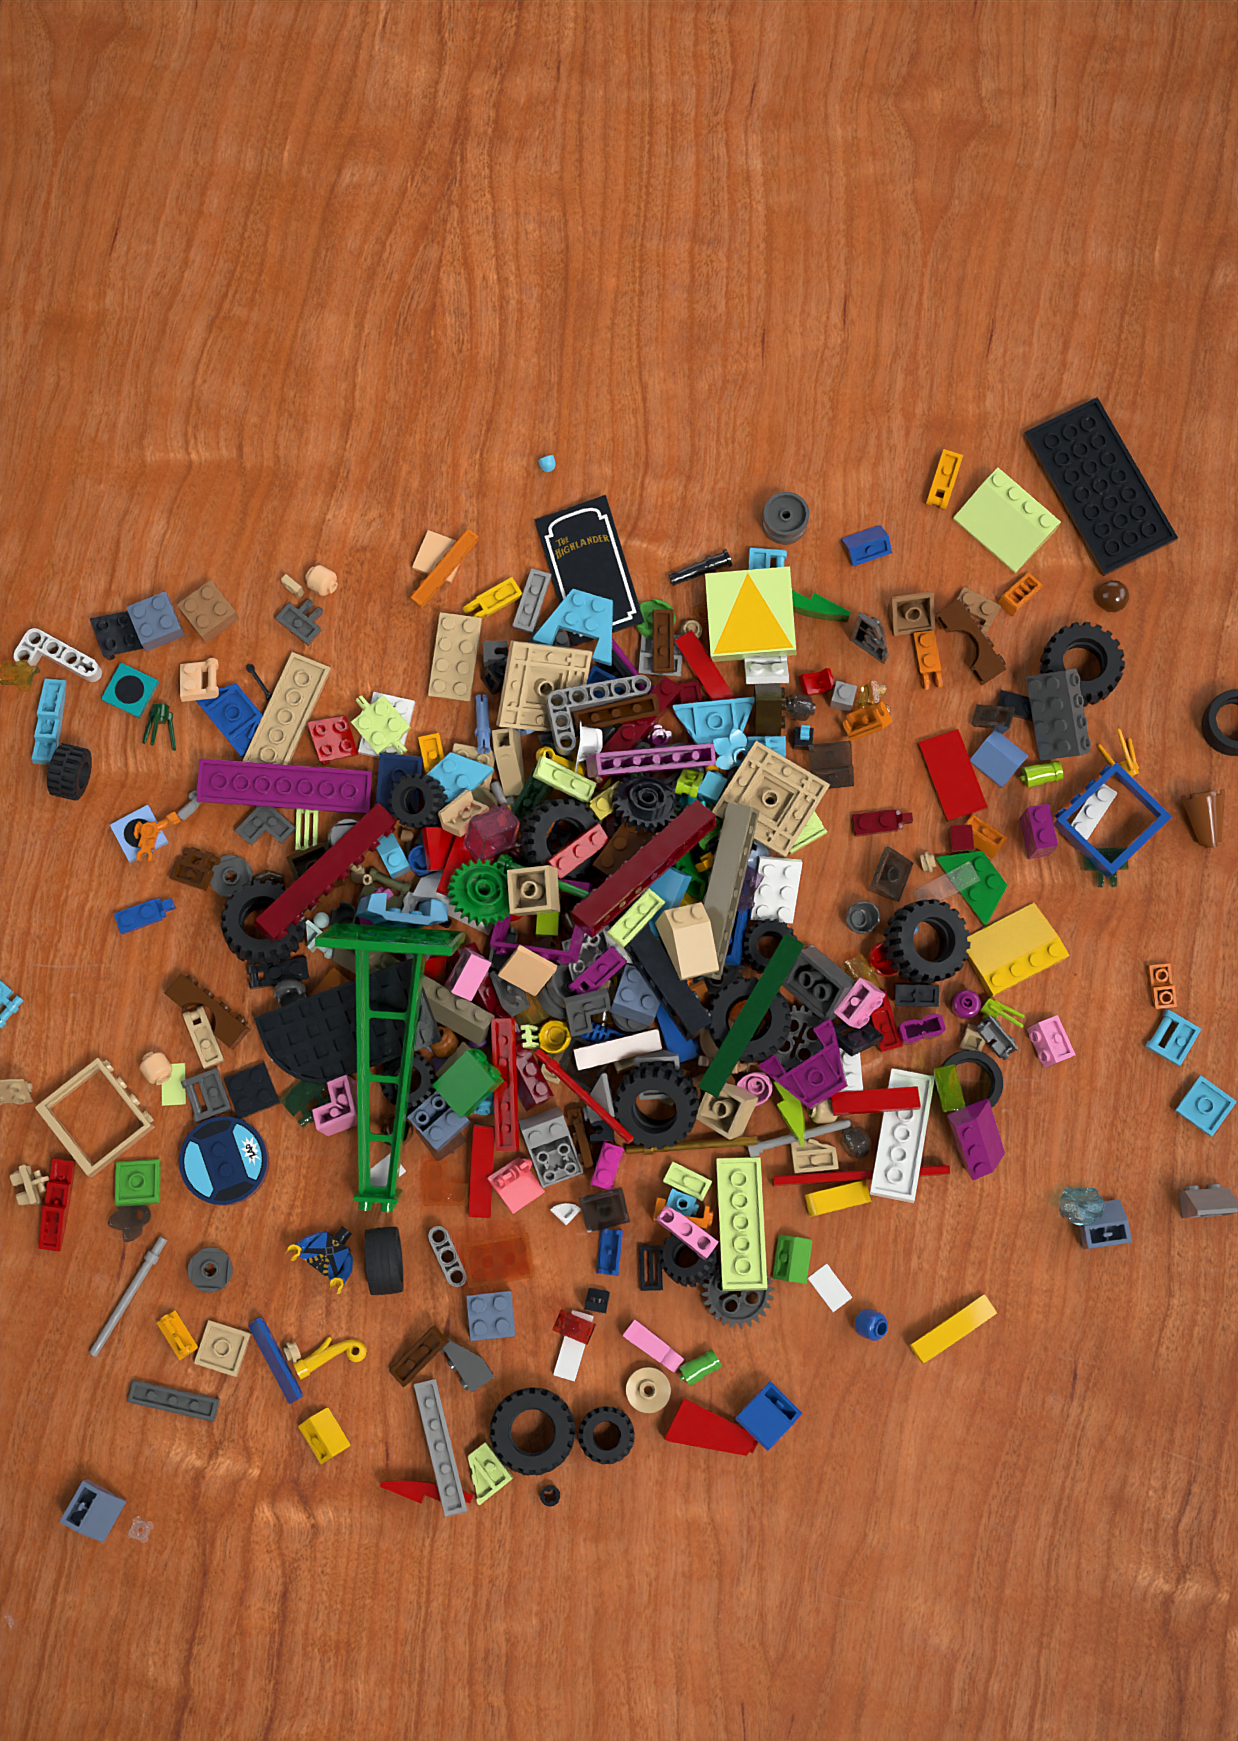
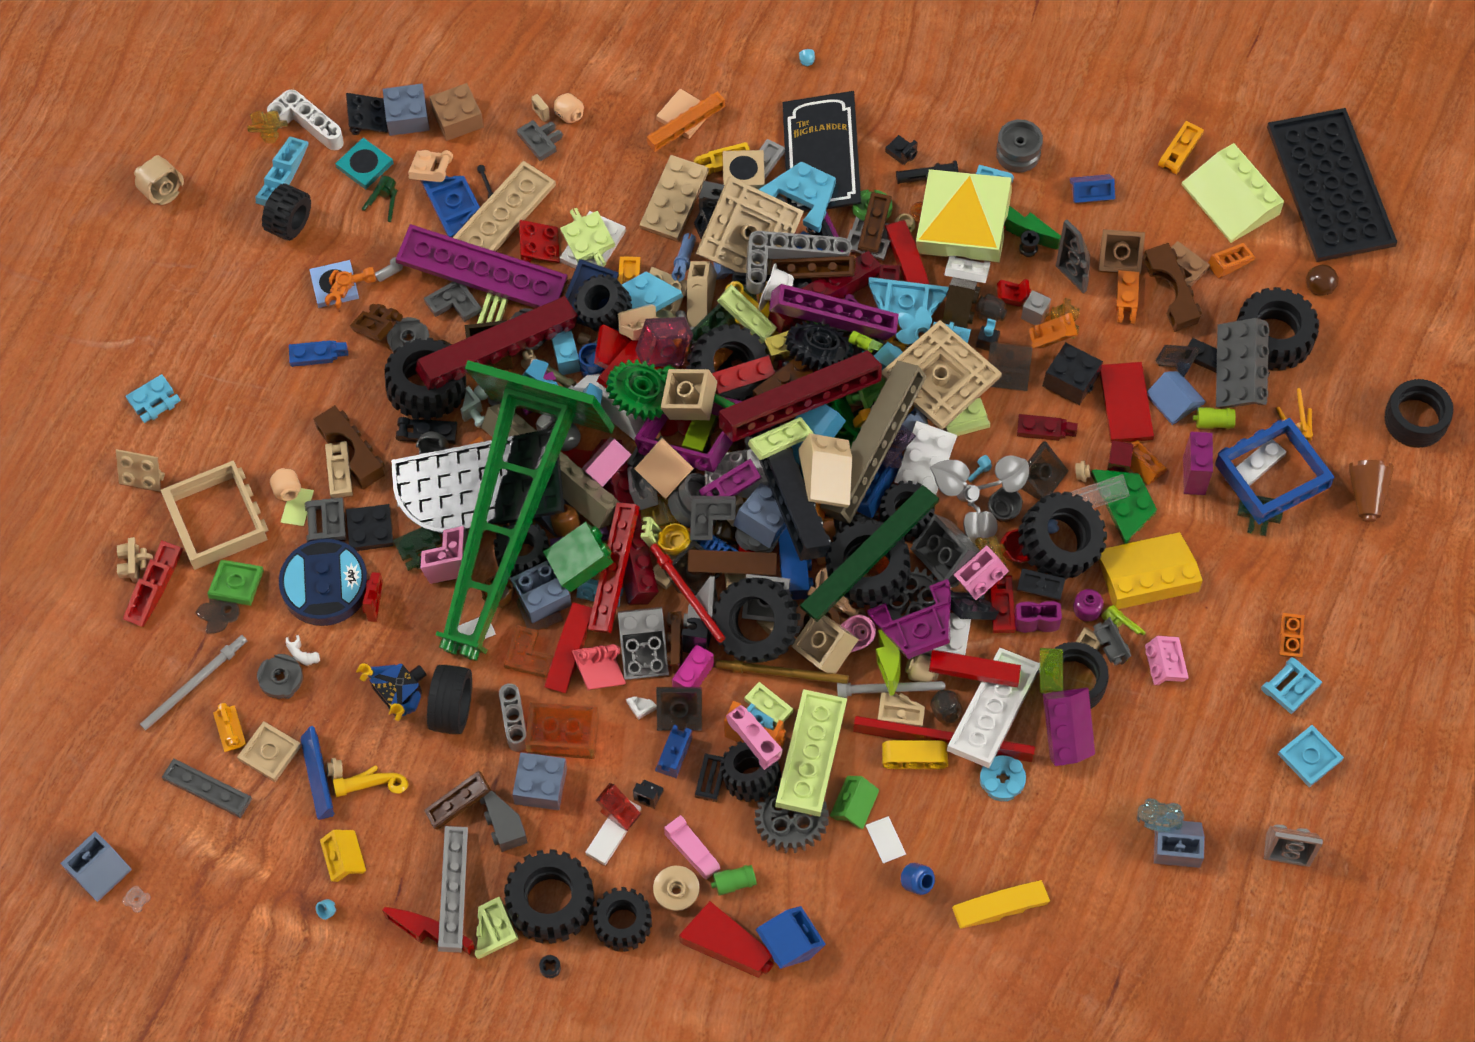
camera: 15 degrees right, 15 degrees down
(228, 1244) = (303, 657): none -> white piece
(277, 1171) = (373, 596): none -> red wing
(324, 1494) = (328, 912): none -> medium azure hinge
(517, 611) = (745, 167): none -> tile
(668, 547) = (902, 150): none -> black bracket
(812, 911) = (951, 478): none -> light grey plant
(822, 619) = (1029, 243): none -> black bush
(832, 876) = (985, 465): none -> medium azure hand
(895, 760) = (1072, 373): none -> black brick
(935, 1207) = (1012, 787): none -> medium azure plate

